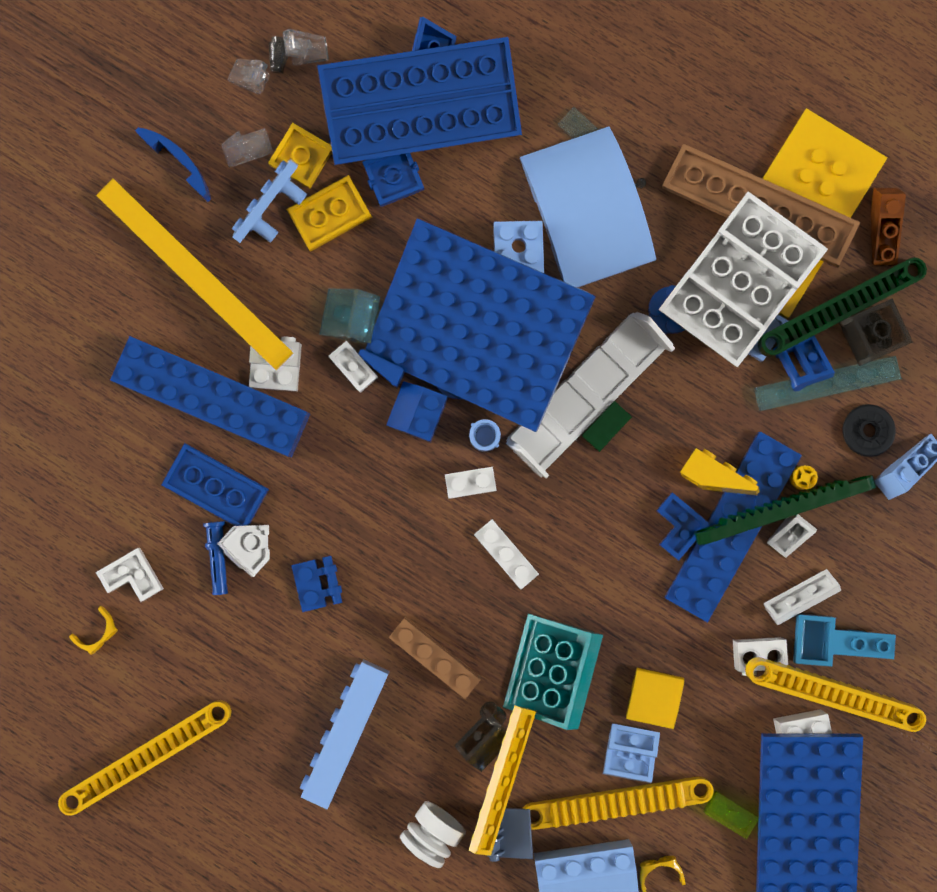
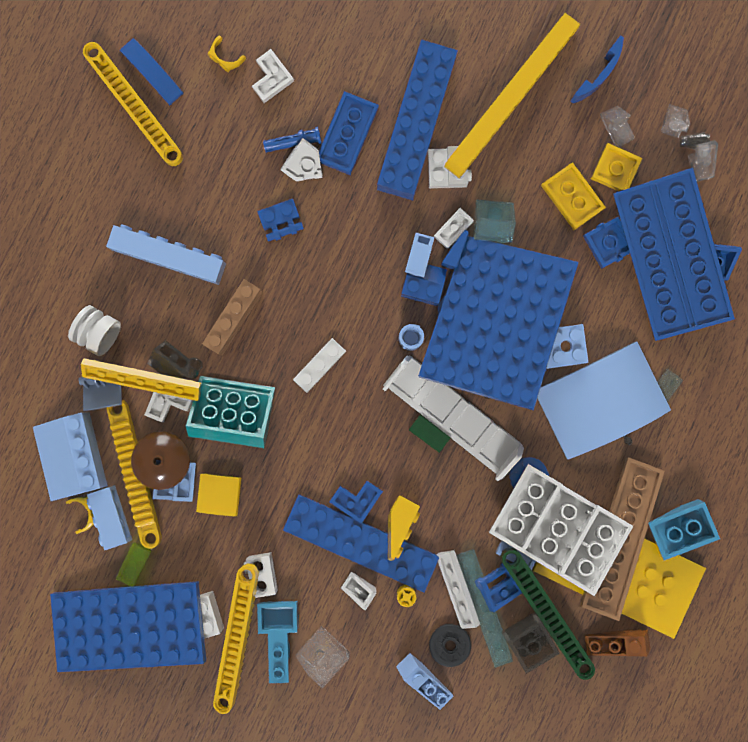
camera: 80 degrees right, 0 degrees up
(104, 729) = (151, 71): none -> blue slope
(270, 190) = (570, 137): light blue plate -> none
(383, 413) = (419, 255): none -> light blue slope
(470, 482) = (372, 330): white brick -> none
(534, 760) = (160, 405): none -> white plate
(595, 752) = (173, 456): none -> reddish brown dish
(669, 840) = (109, 517): none -> light blue brick
(757, 130) = (683, 529): none -> dark azure slope
(784, 508) = (379, 582): dark green gear -> none
(802, 413) = (458, 589): none -> white plate
(802, 597) = (311, 604): white plate -> none
(869, 589) = (322, 657): none -> clear slope

